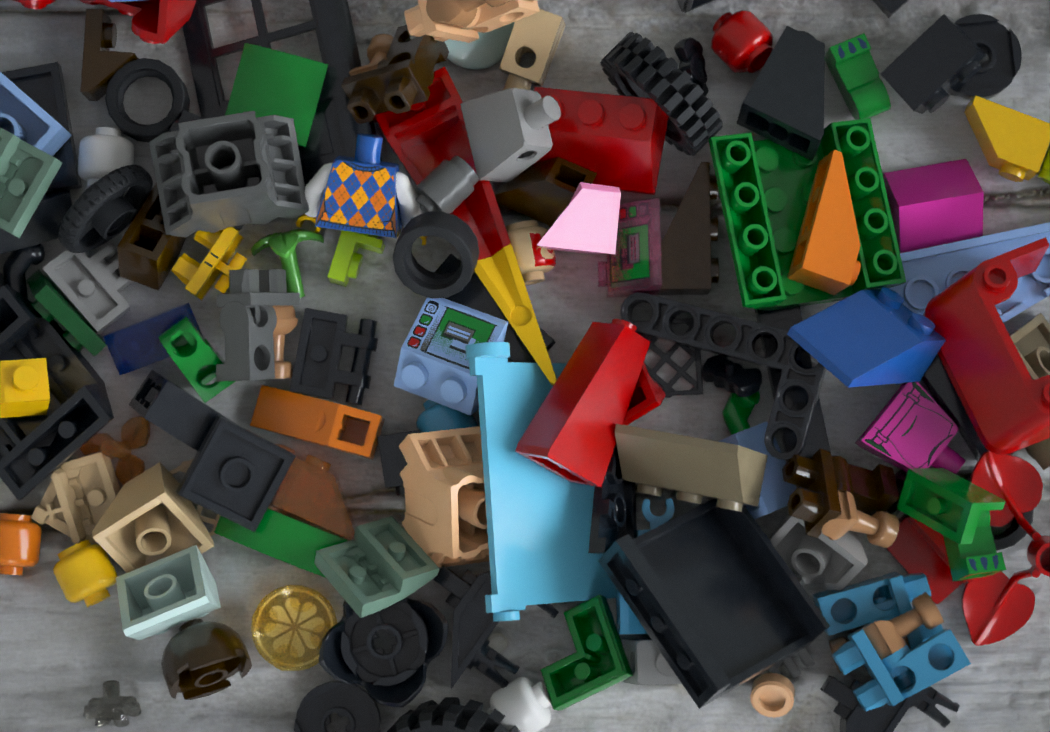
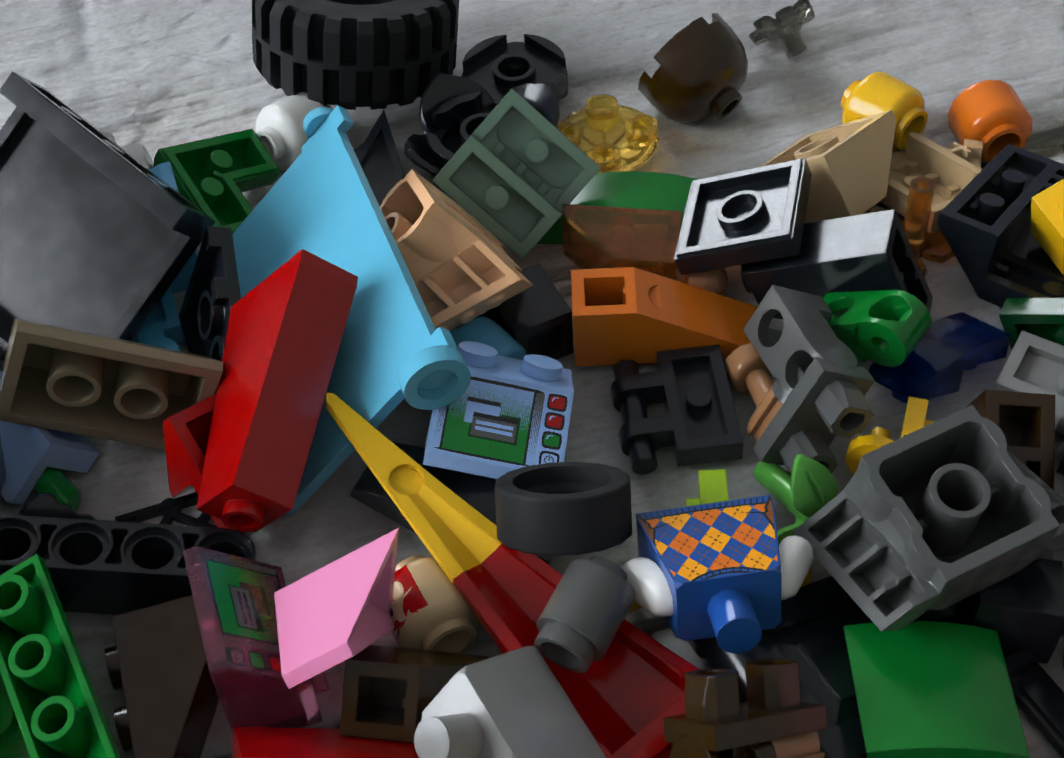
camera: 165 degrees right, 35 degrees down
(166, 594) = (766, 92): light aqua slope -> none

